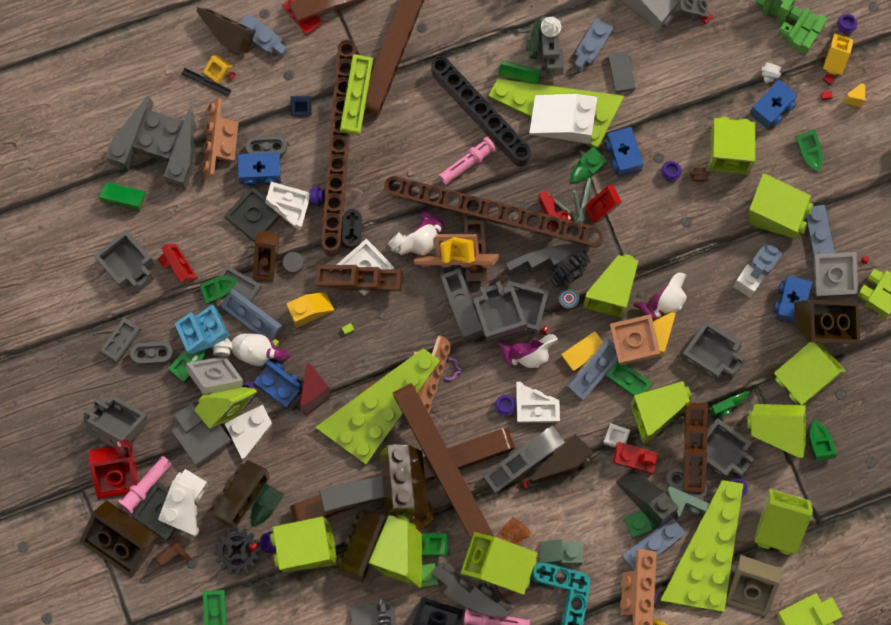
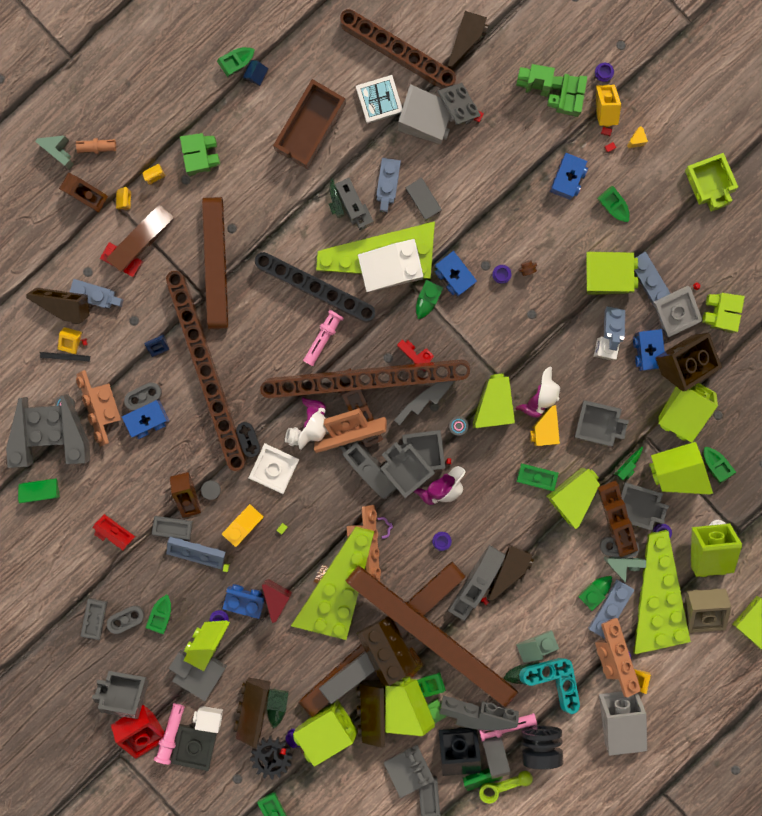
camera: 25 degrees left, 15 degrees up
(118, 538) = (168, 786): dark brown slope -> none
(123, 448) = (138, 719): dark red hinge -> none
(126, 262) = (68, 550): dark grey piece -> none
(170, 551) = (216, 780): reddish brown tile -> none
(180, 508) = (208, 744): white wing -> none
(202, 330) = (159, 583): dark azure slope -> none
(214, 375) = (187, 621): light grey tile -> none
(217, 288) = (156, 542): green plate -> none
(222, 348) = (182, 589): white plate -> none
(248, 429) = (236, 650): white wing -> none
(252, 214) = (158, 460): pearl dark grey tile -> none
(257, 349) = (213, 581): white hair -> none
(288, 203) = (184, 440): white wing -> none
(316, 196) = (206, 423): dark purple plate -> none
(356, 94) = (201, 320): lime tile -> none
(359, 278) = (273, 483): reddish brown slope -> none
(457, 249) = (349, 429): yellow bracket -> none
(499, 563) = (493, 687): lime slope -> none
(515, 531) = (492, 644): clear orange slope -> none
(519, 72) = (334, 236): green slope -> none
(535, 406) = (468, 532): white wing -> none
(550, 27) = (348, 191): white plate -> none
(569, 269) = (451, 403): black gear -> none
(578, 214) = (437, 346): sand green plant -> none
(582, 351) = (489, 467): yellow tile -> none
(593, 370) = (505, 480): sand blue plate -> none
(603, 204) = (456, 332): red hinge -> none
(616, 434) = (545, 529): white tile -> none
(635, 339) = (531, 445): nougat plate -> none
(635, 458) = (568, 542): red hinge -> none
(648, 498) = (592, 574): pearl dark grey slope -> none
(732, 146) = (547, 229): lime slope -> none
(770, 72) = (554, 146): white plate -> none

